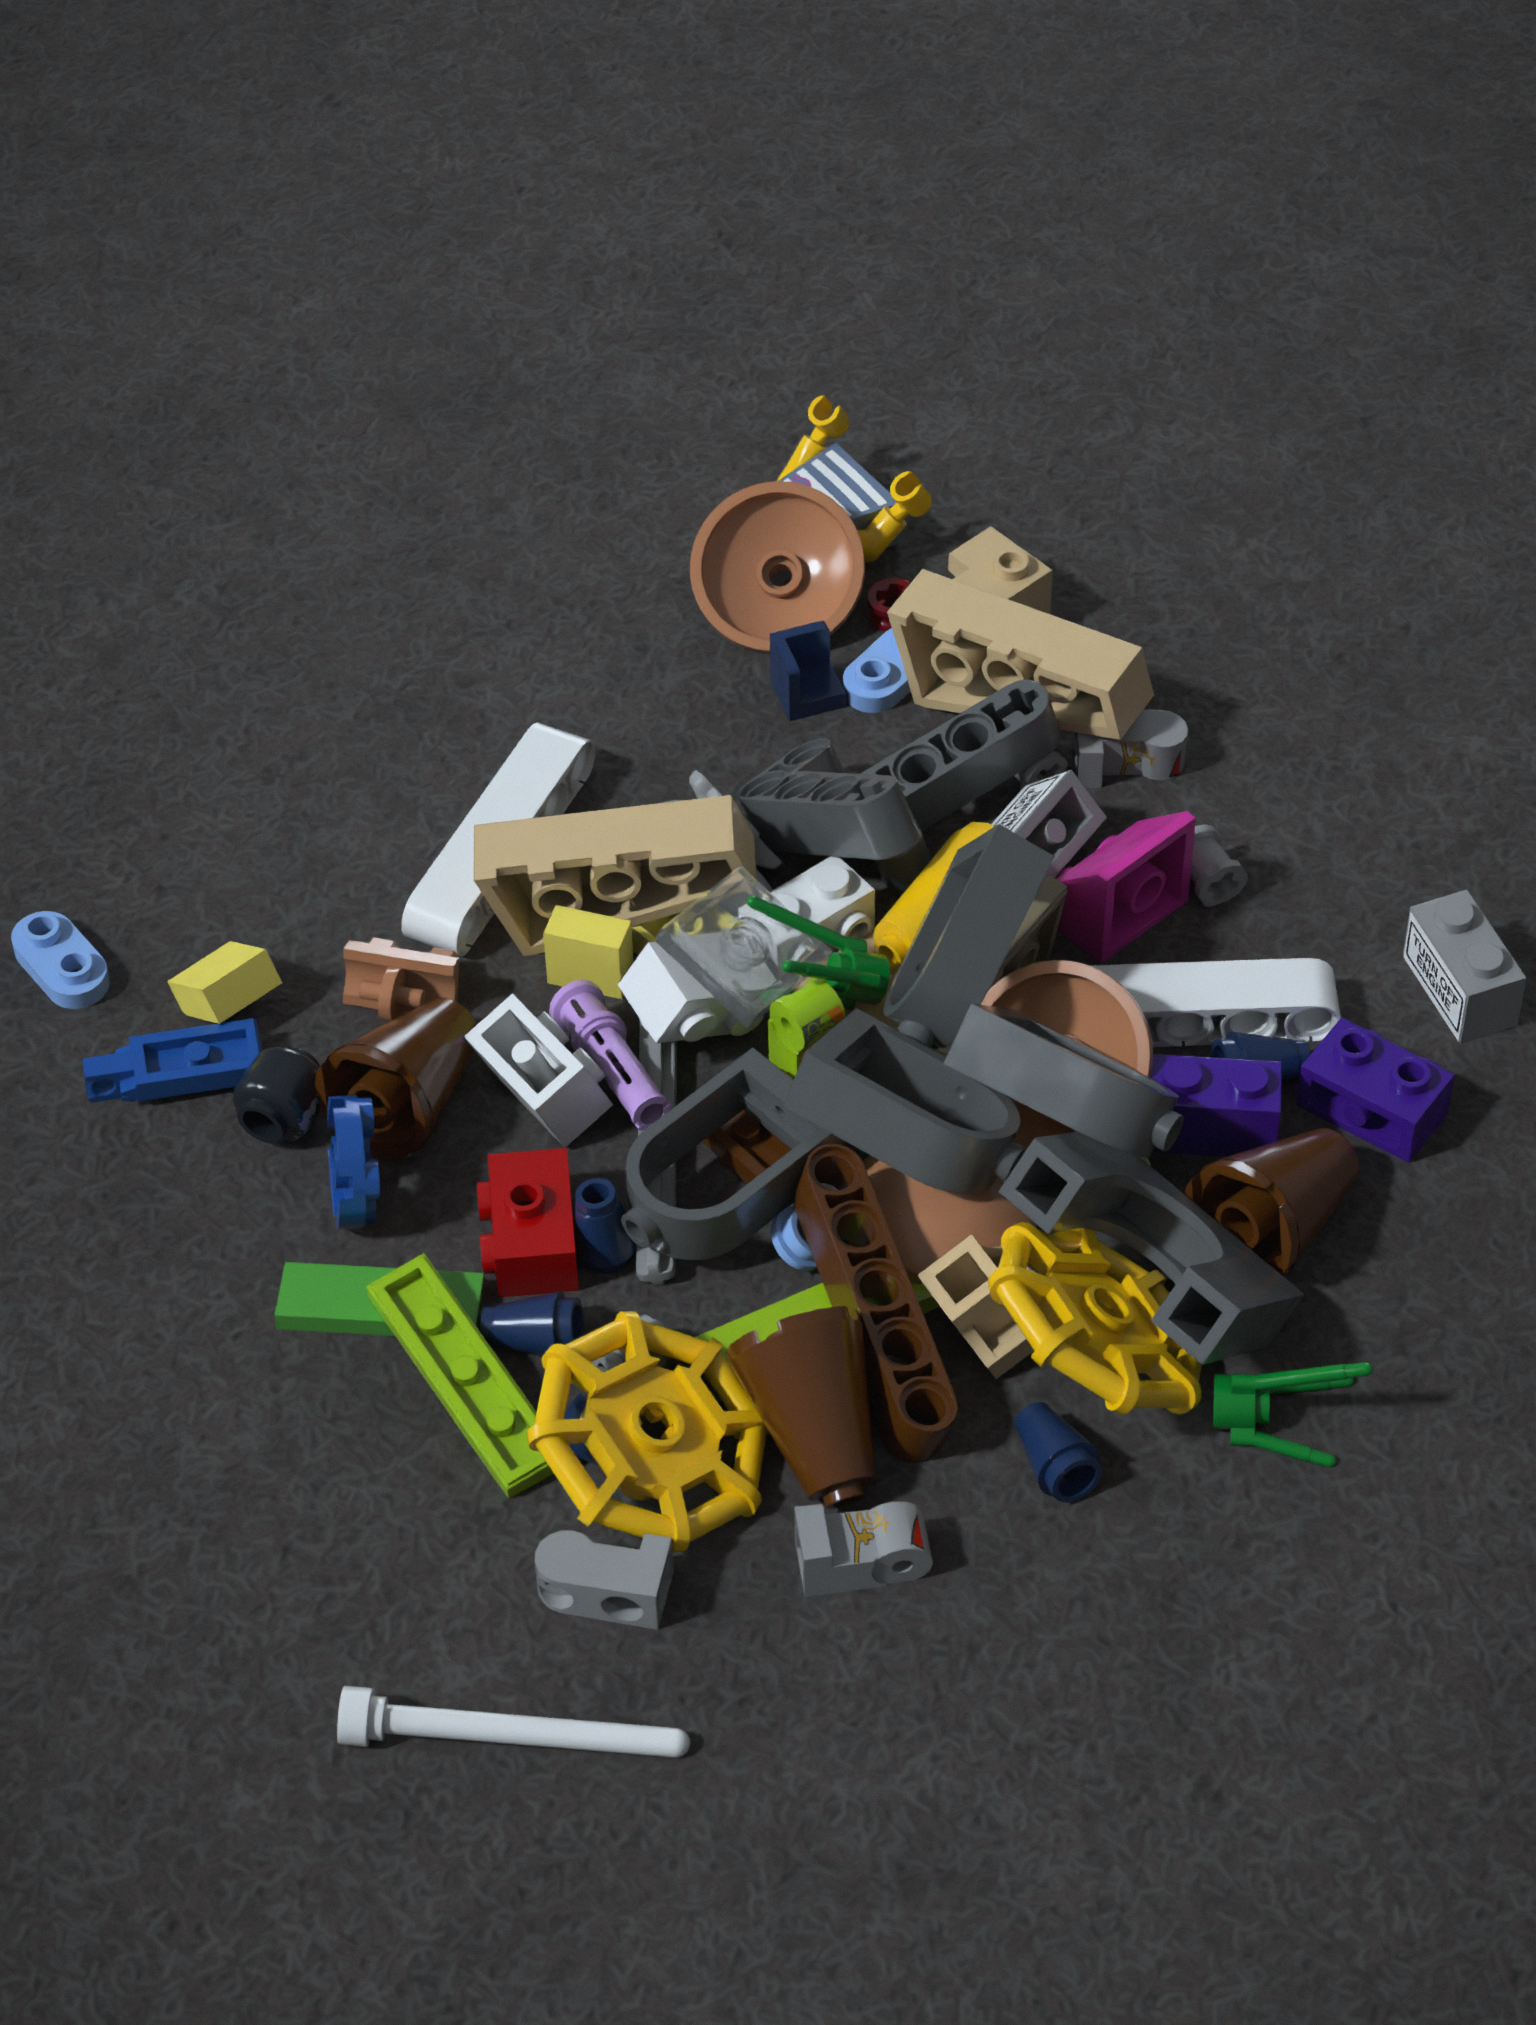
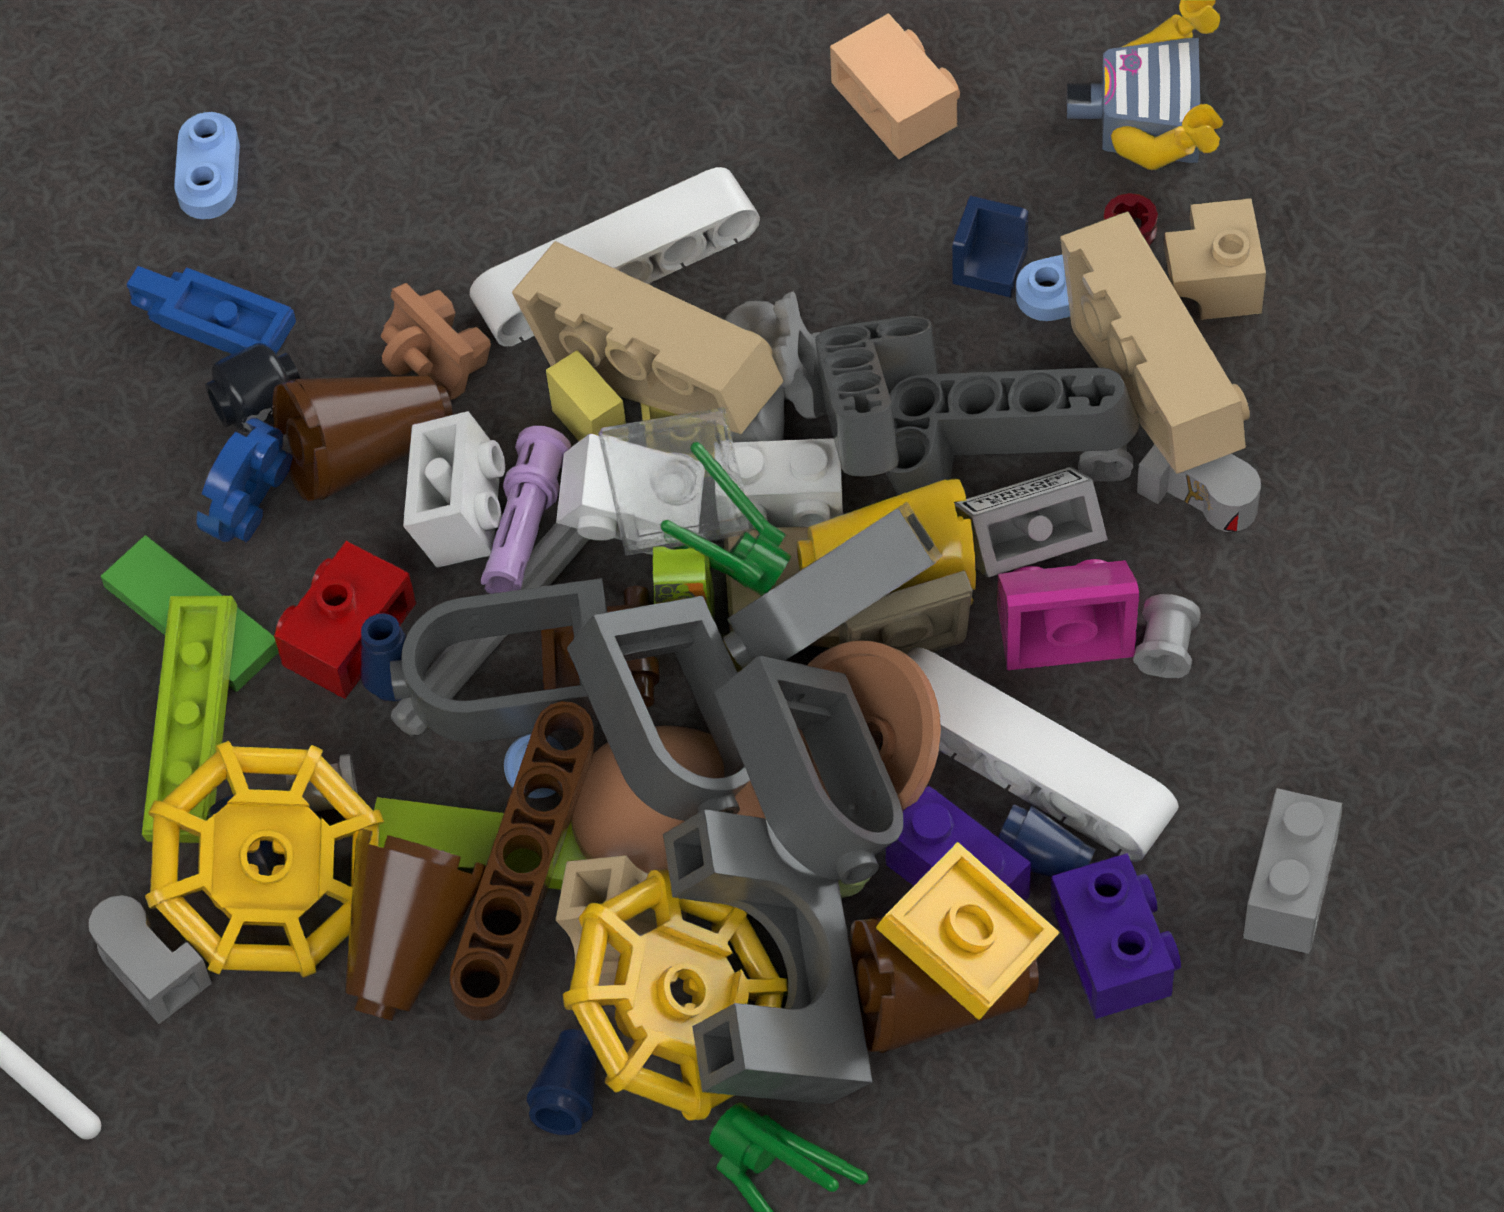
camera: 40 degrees right, 10 degrees up
(224, 982) = (295, 262): light yellow piece -> none
(533, 1323) = (277, 710): dark blue cone -> none
(628, 594) = (894, 85): none -> light nougat brick
(772, 531) = (1018, 111): nougat dish -> none
(860, 1547) = (345, 1059): light grey leg -> none
(1296, 1123) = (967, 930): none -> yellow plate

